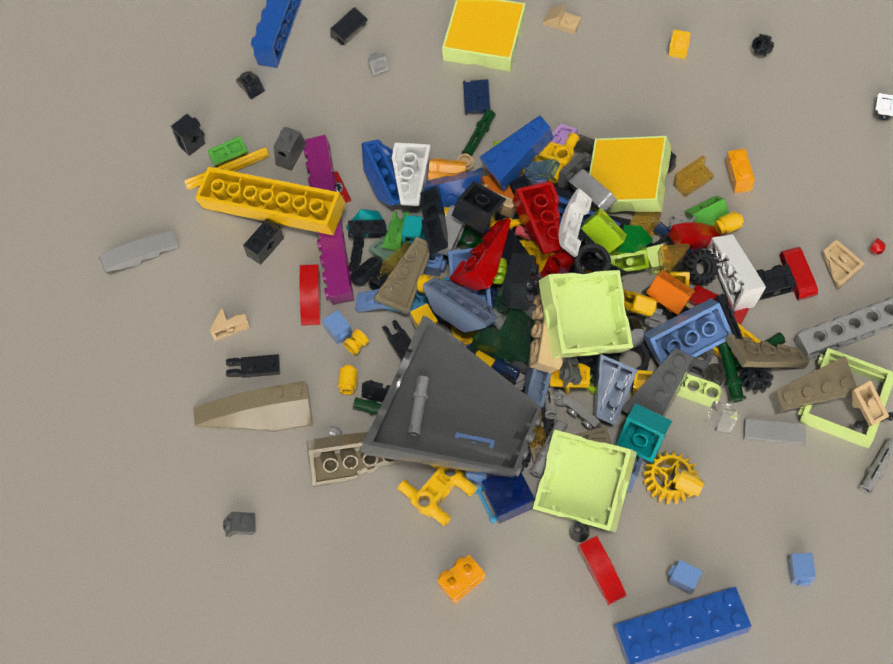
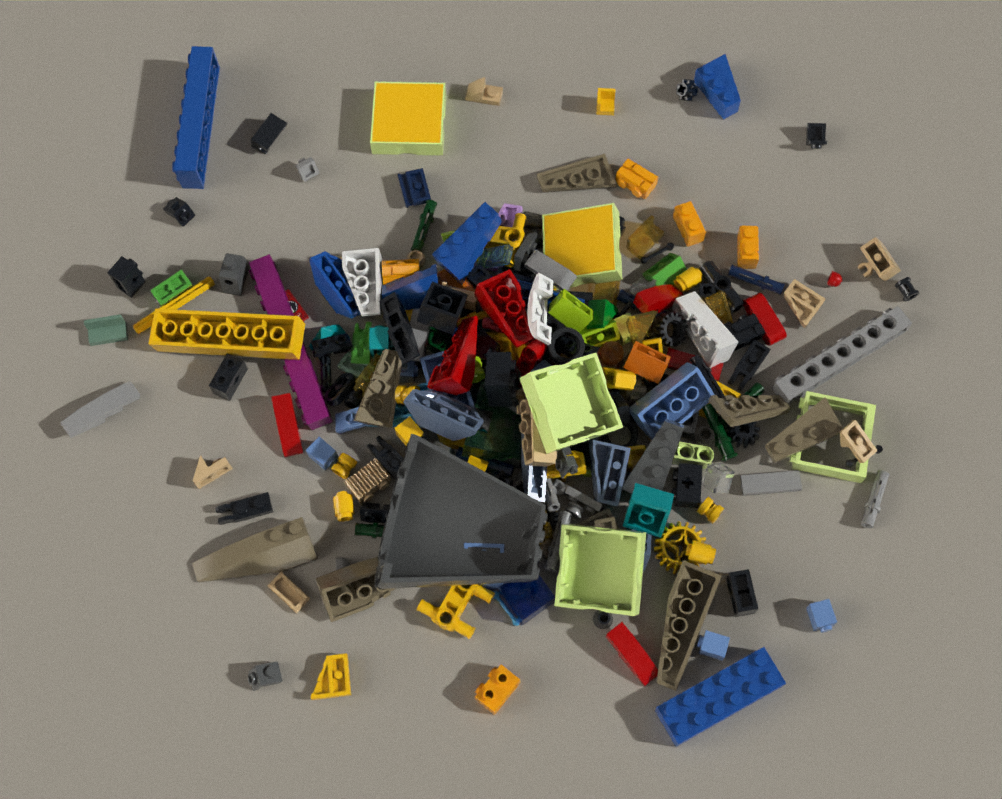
camera: 15 degrees left, 5 degrees up
(159, 180) = (106, 330): none -> sand green panel
(278, 451) = (288, 592): none -> tan tile
(304, 539) = (333, 679): none -> yellow wing
(376, 360) = (368, 481): none -> tan brick
(420, 397) = (422, 523): light grey pin -> none
(573, 422) = (575, 510): none -> light grey bush
(639, 109) = (580, 175): none -> dark tan wing
(639, 274) = (615, 348): none -> clear orange head
(662, 544) = (684, 619): none -> dark tan wedge
(686, 429) = (692, 475): none -> black brick
(695, 121) = (636, 179): none -> light orange brick
(708, 446) = (710, 510): none -> yellow wheel
(716, 190) = (670, 246): none -> black hinge
(723, 531) = (742, 593): none -> black brick
(743, 239) = (704, 288): none -> black bush
(755, 253) = (719, 306): none -> clear yellow slope
(764, 244) = (714, 276): none -> black piece
(775, 313) = (750, 363): none -> black hinge
(794, 202) = (747, 247): none -> light orange brick
(795, 46) = (718, 86): none -> blue wedge
(817, 244) = (777, 286): none -> dark blue pin

